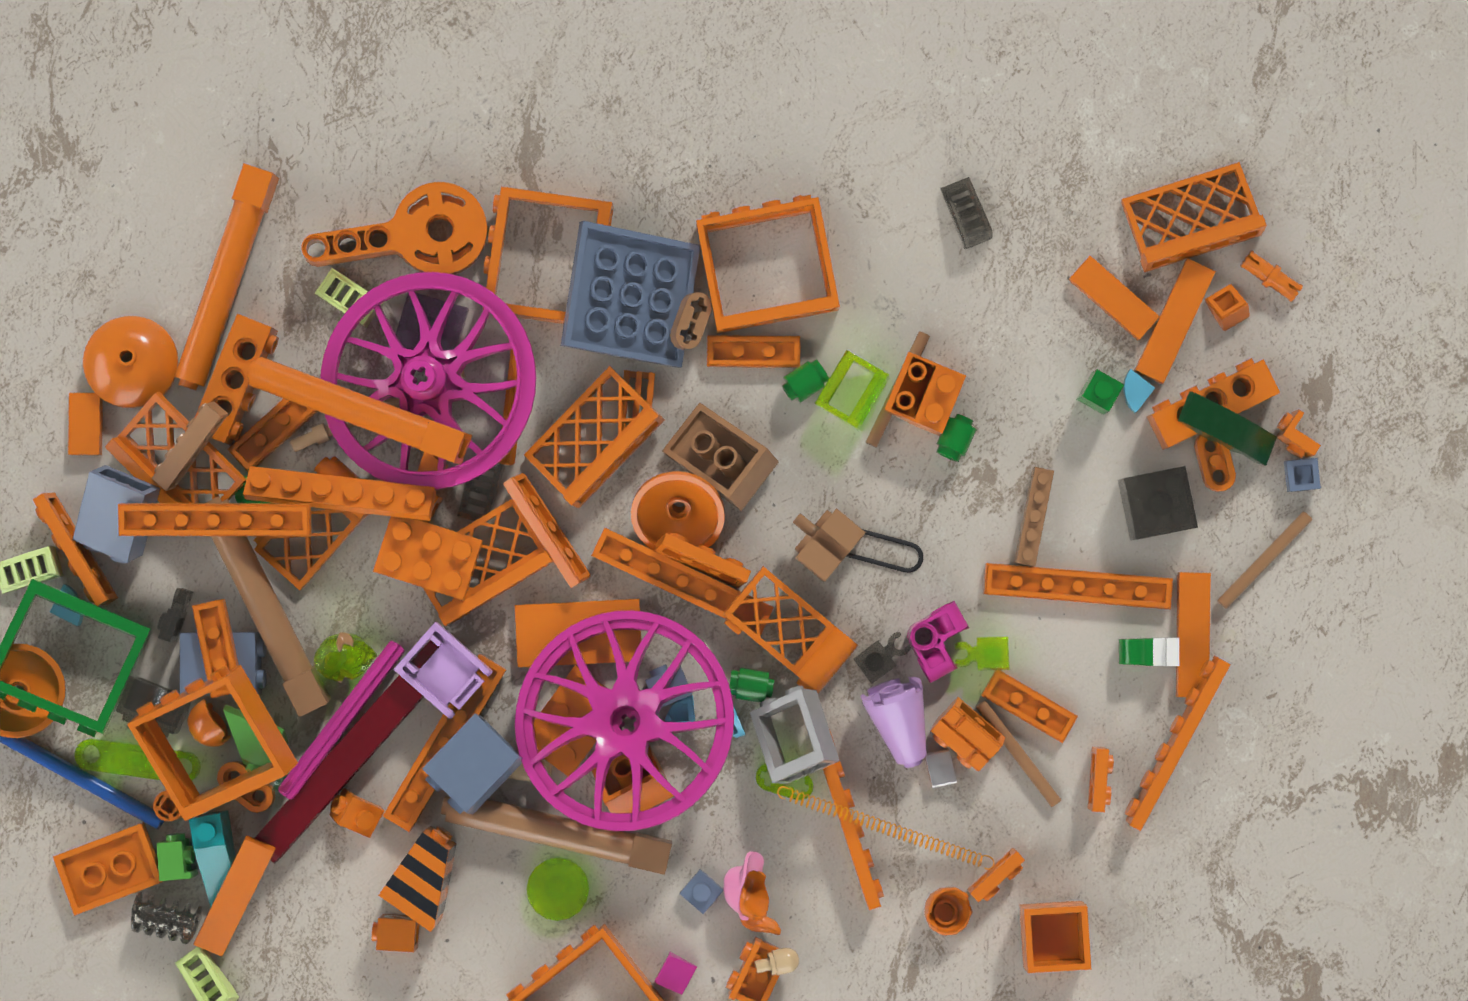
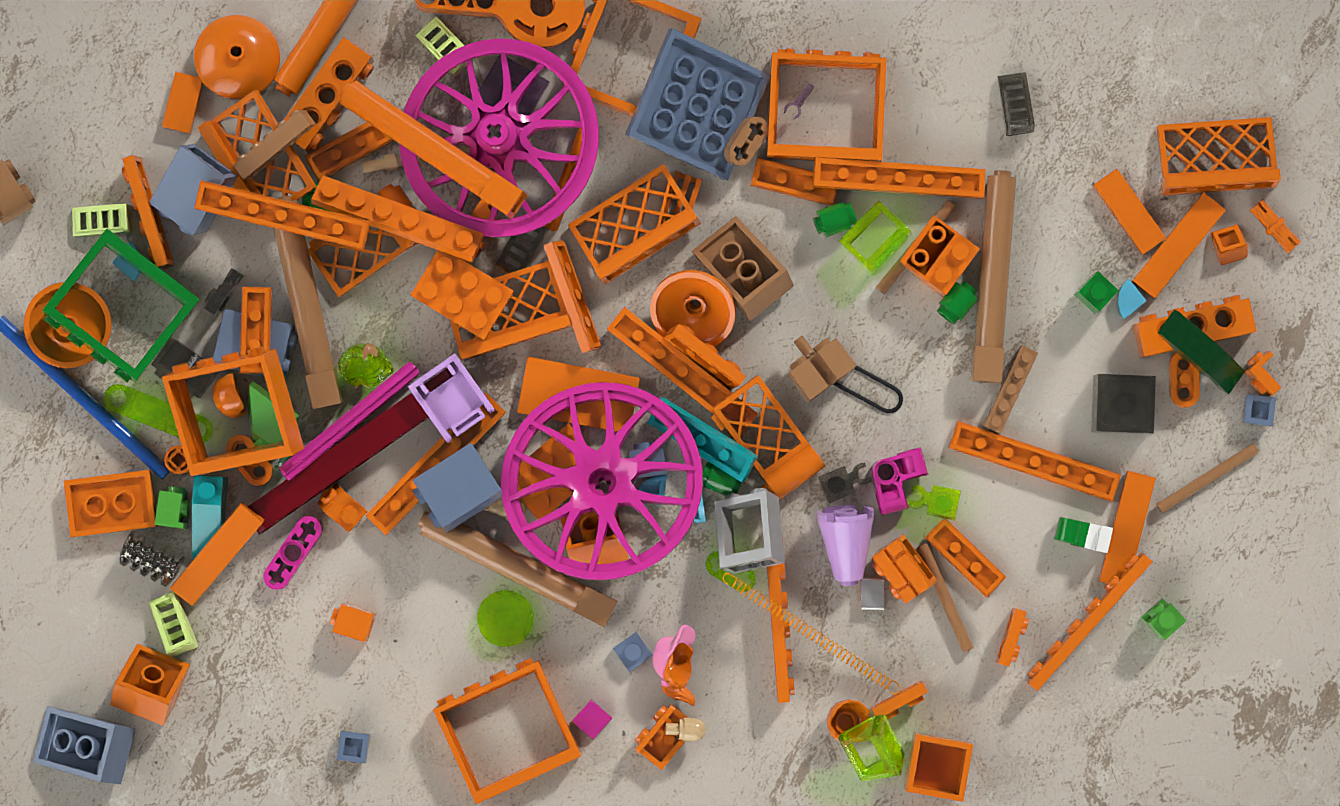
camera: 10 degrees right, 0 degrees up
(315, 898) = (299, 531): none -> dark pink beam
(423, 878) = (389, 577): slope -> none
(733, 652) = (712, 444): none -> teal plate
(737, 265) = (800, 100): none -> clear purple hand
(862, 321) = (899, 178): none -> orange plate
(991, 923) = (885, 742): none -> clear neon green tile
(1000, 481) = (994, 276): none -> medium nougat brick
(1255, 721) = (1163, 619): none -> bright green brick

